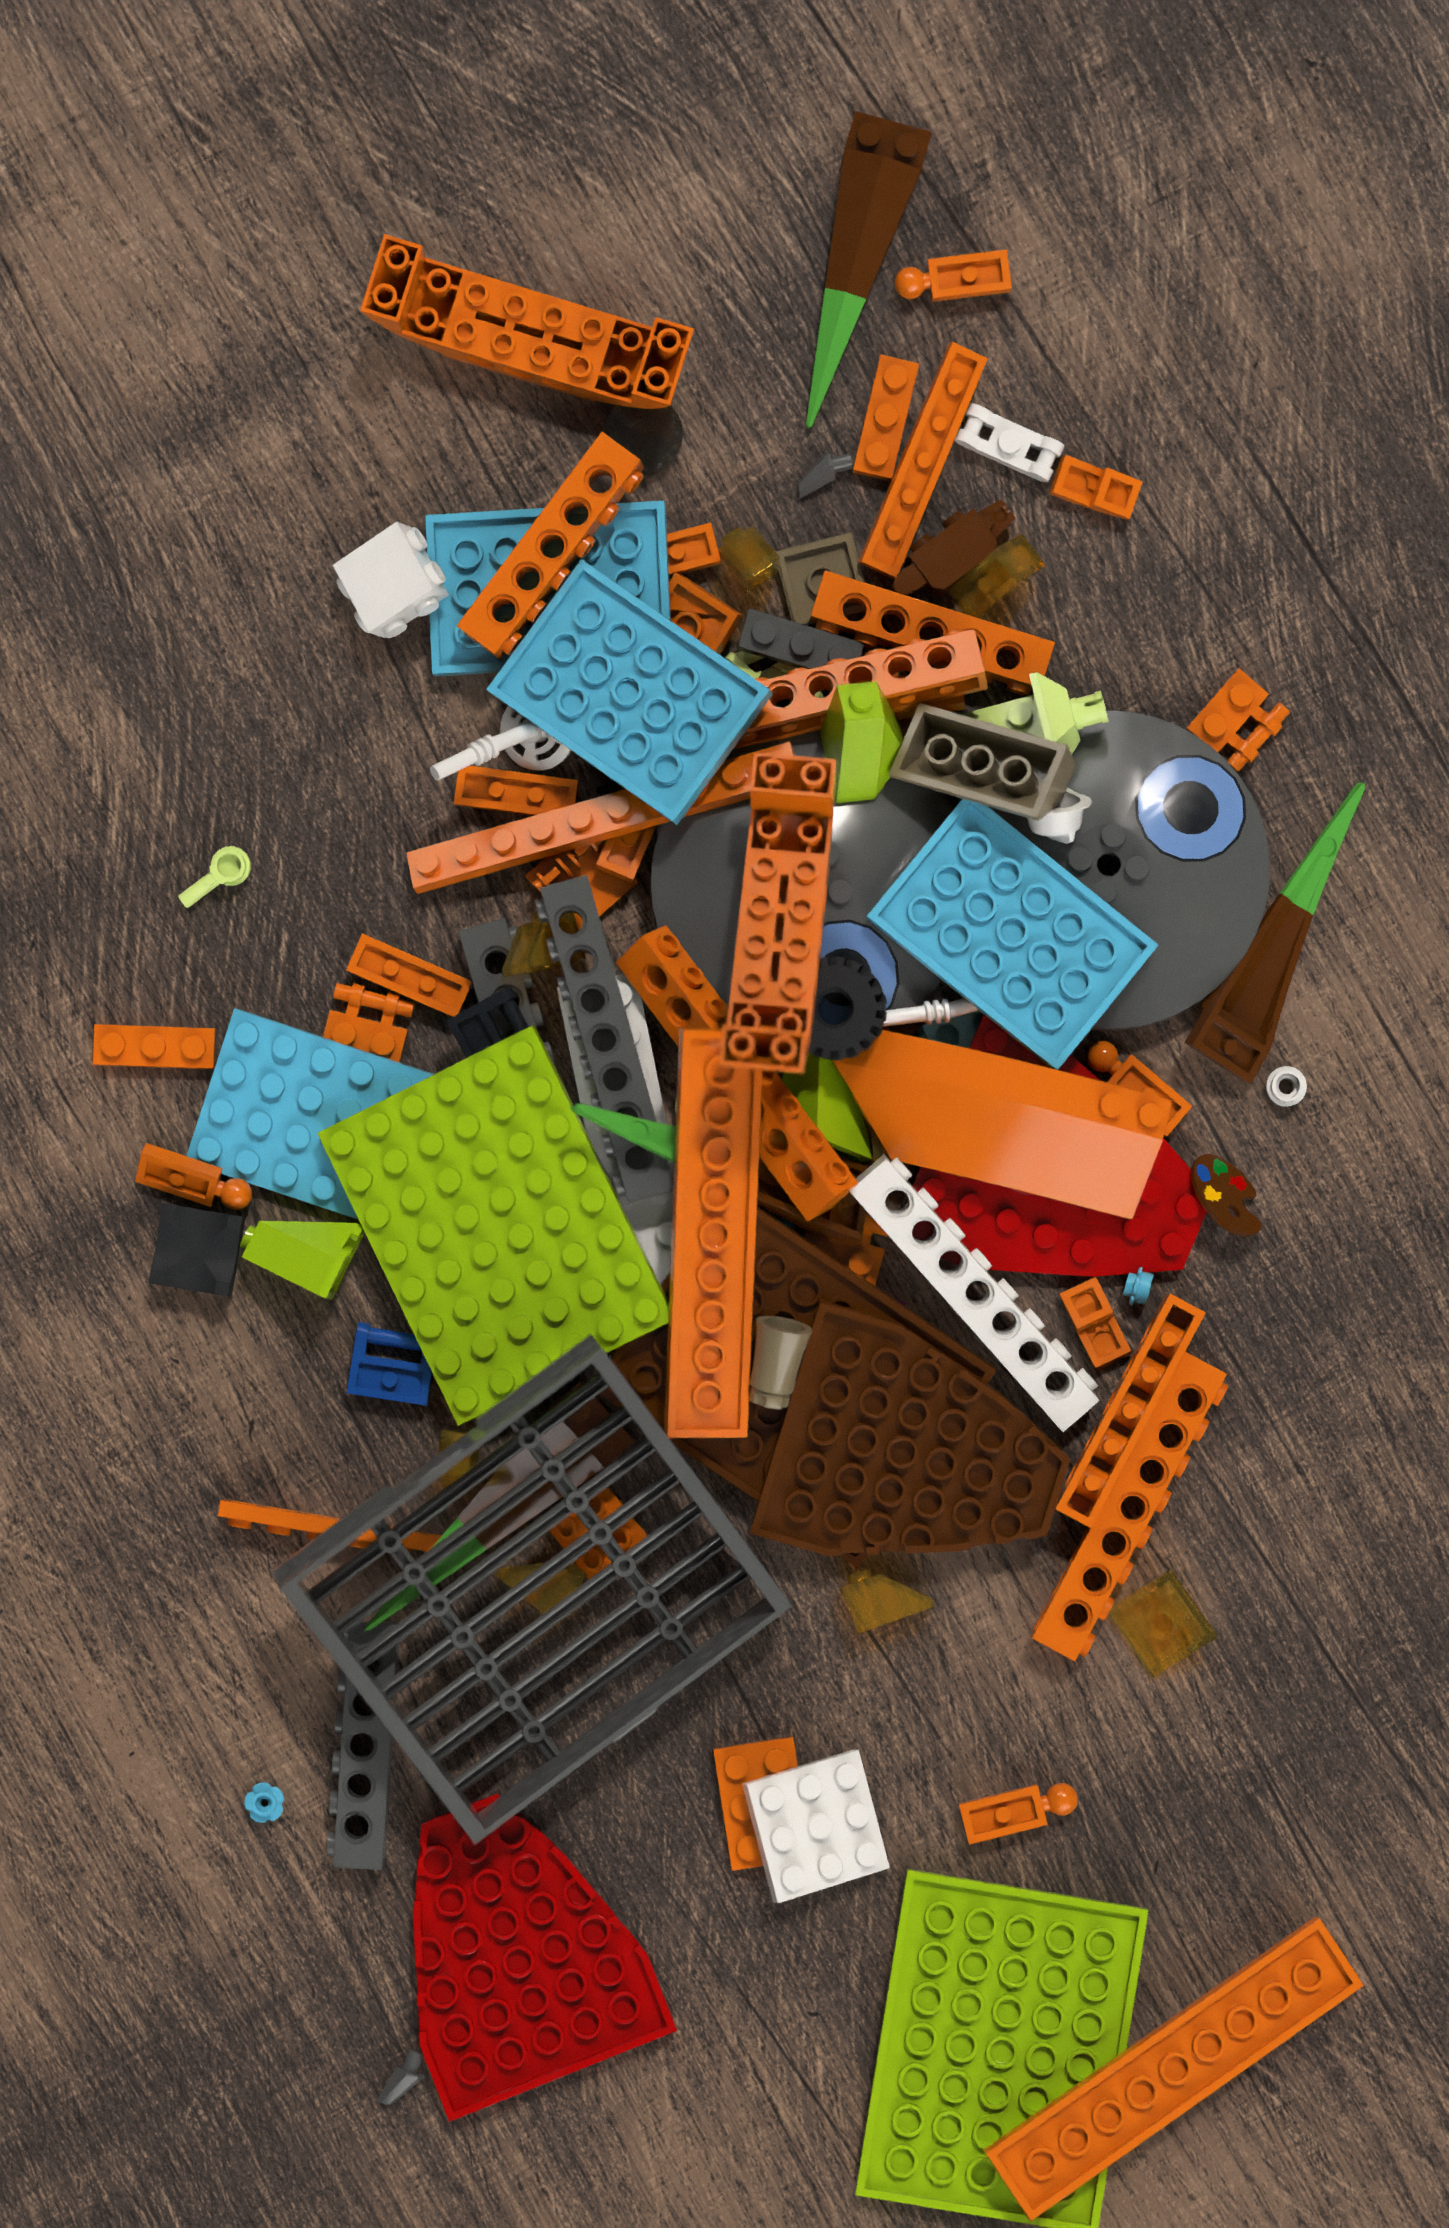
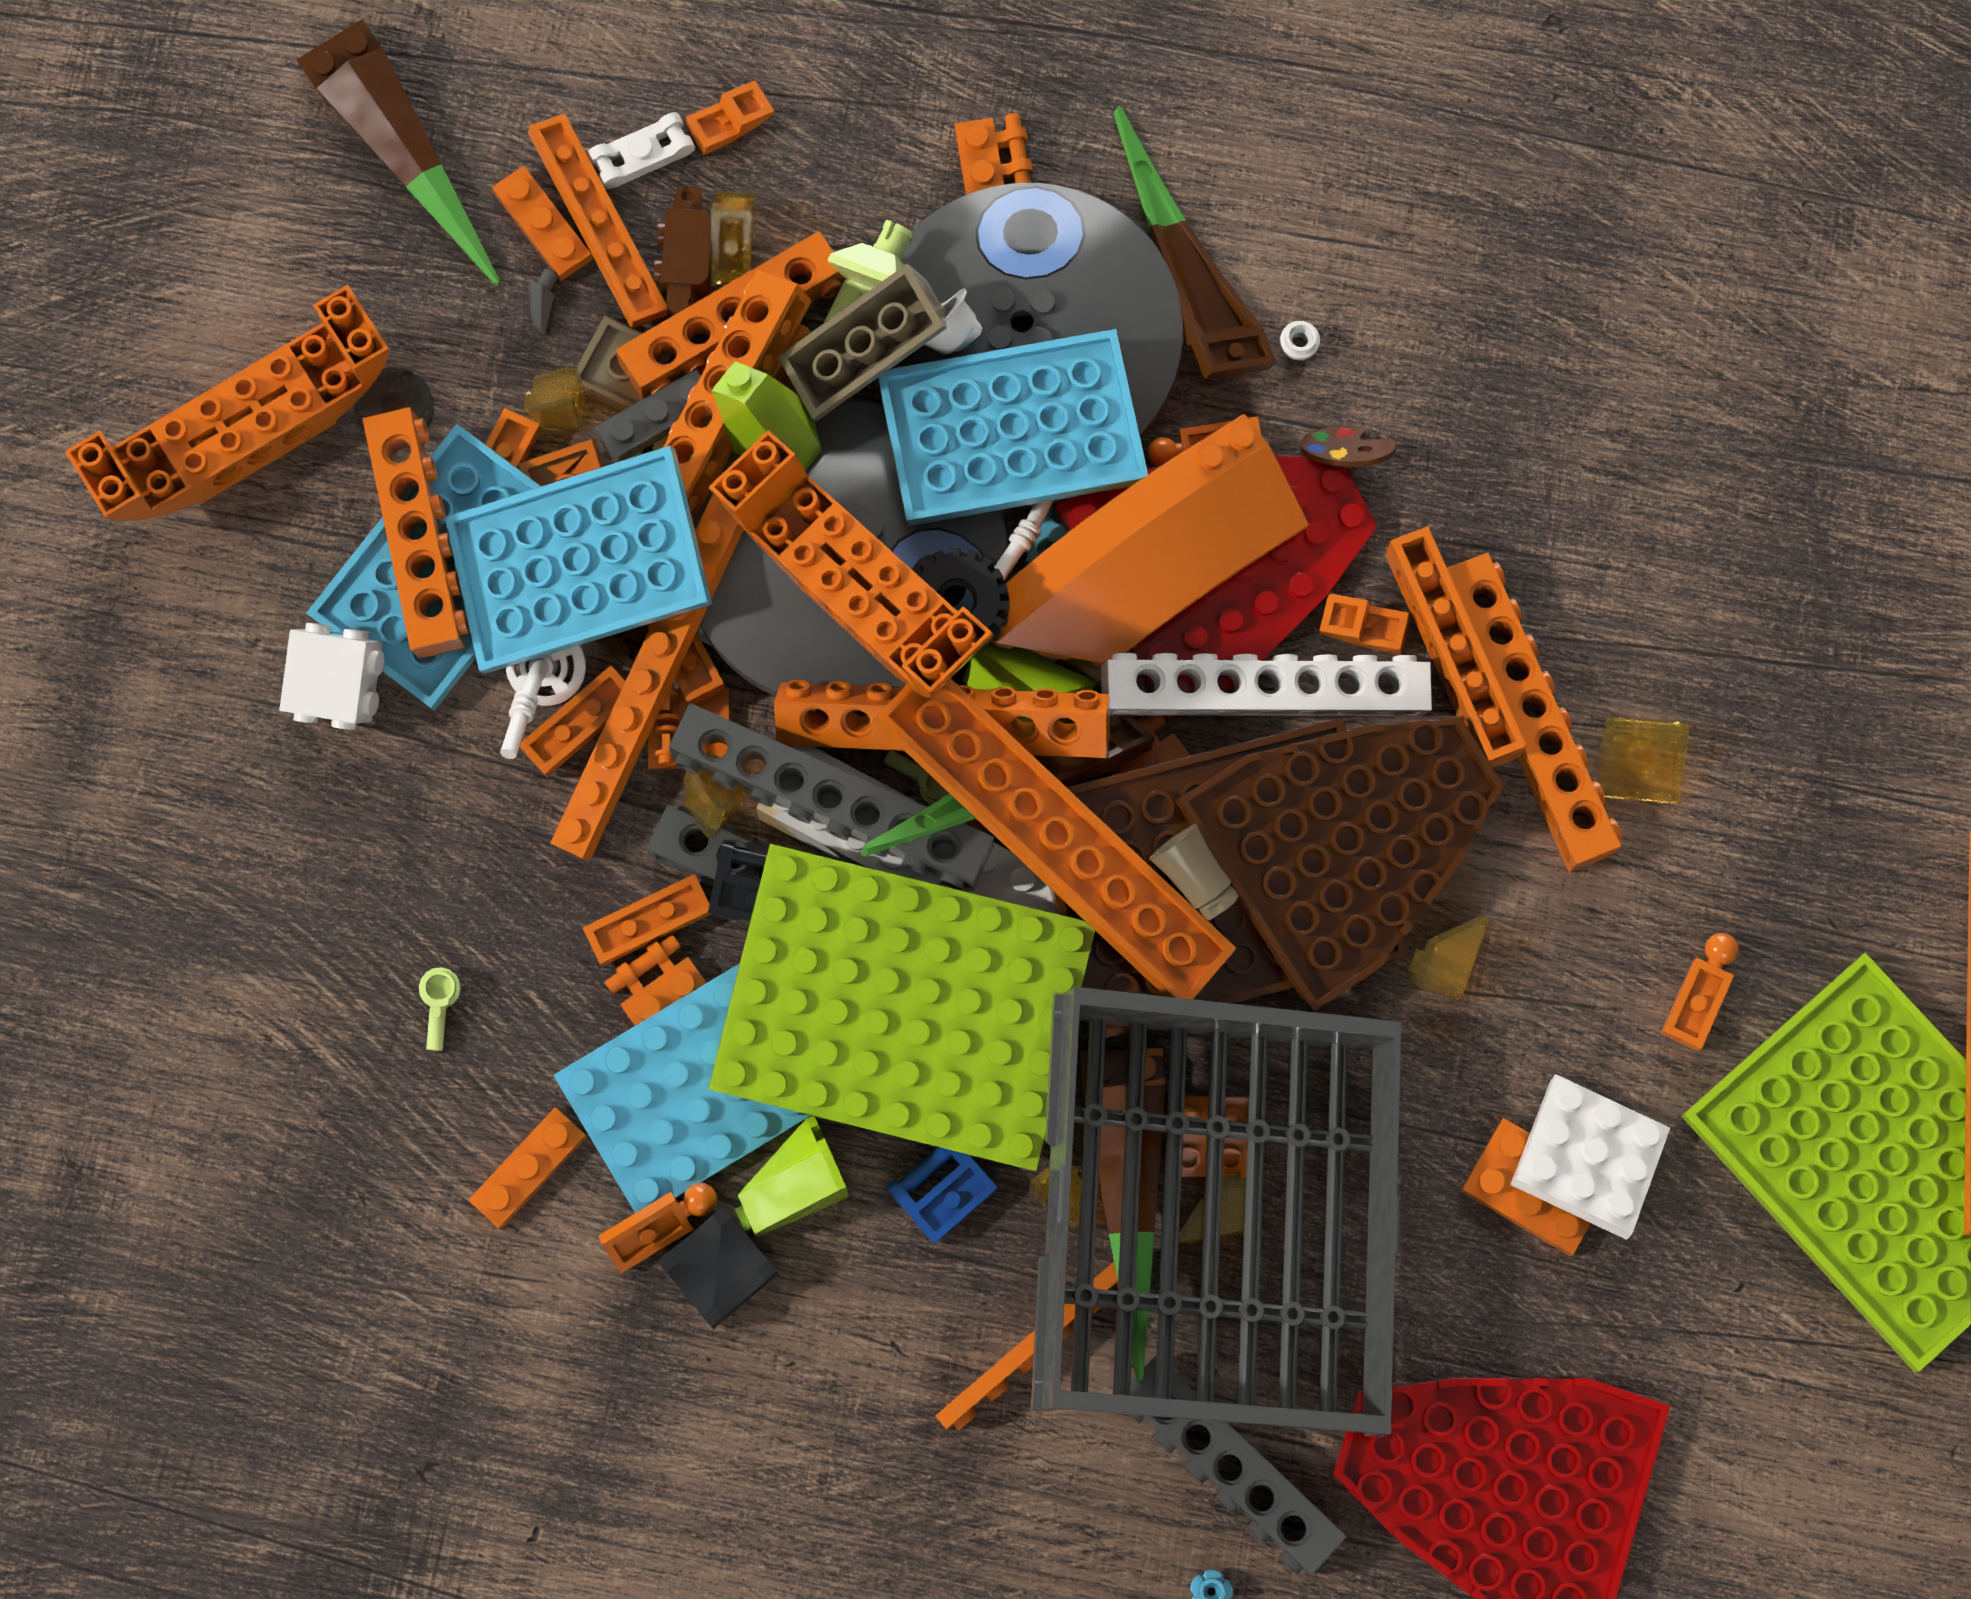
camera: 45 degrees left, 10 degrees down
(957, 277) = (485, 87): orange plate -> none
(1138, 1286) = (1363, 568): medium azure plate -> none

